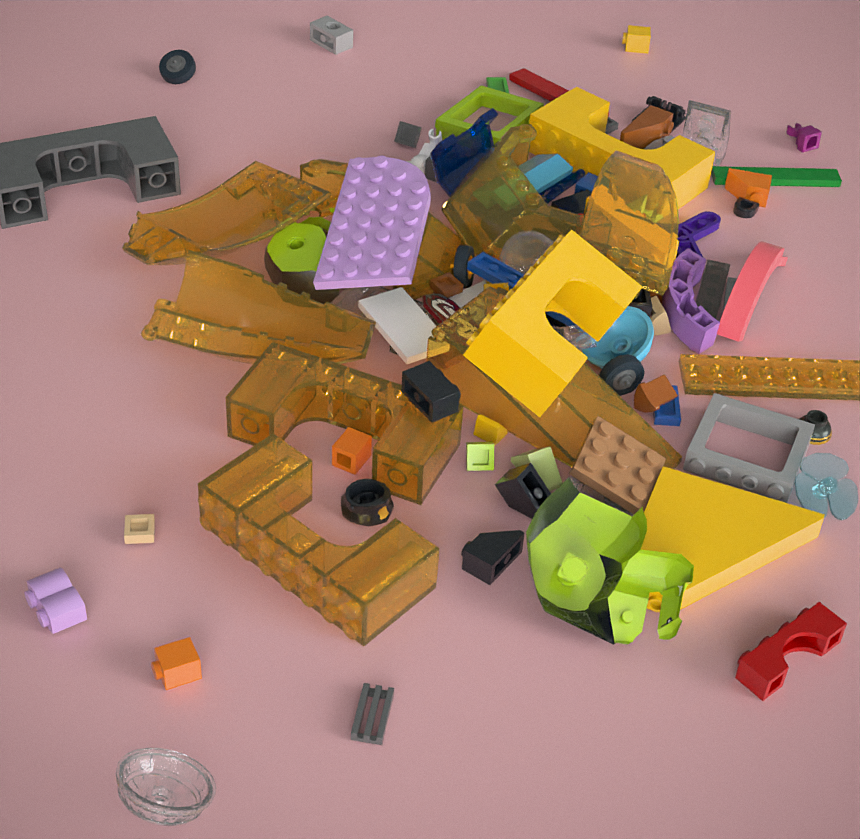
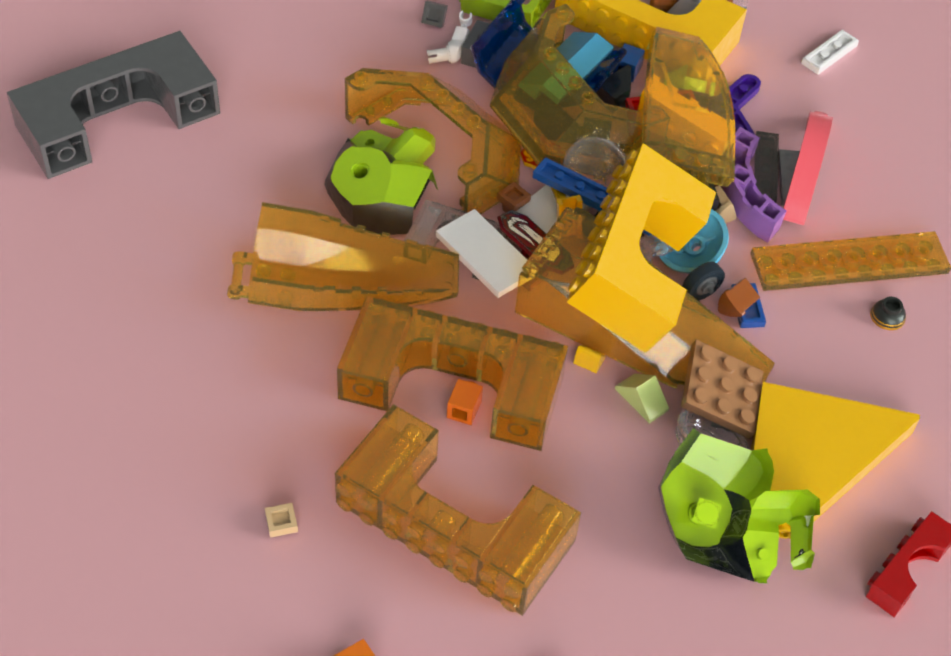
camera: 10 degrees left, 10 degrees up
(56, 601) = (221, 613): lavender brick -> none
(226, 219) = (278, 146): clear yellow windscreen -> none
(367, 502) = (491, 458): black hat -> none
(375, 225) = (439, 145): lavender plate -> none
(430, 391) = (536, 337): black brick -> none
(463, 254) = (525, 171): black wheel -> none
(479, 456) = (587, 391): lime tile -> none
(491, 554) = (621, 500): black slope -> none
(523, 489) = (641, 427): black slope -> none
(742, 473) = (830, 375): light grey piece -> none
(745, 208) = (779, 63): black tile -> none
(749, 185) = (780, 39): orange slope -> none
(786, 176) = (803, 21): green tile -> none
(799, 204) = (829, 52): none -> white tile
(820, 480) = (912, 376): clear light blue piece -> none

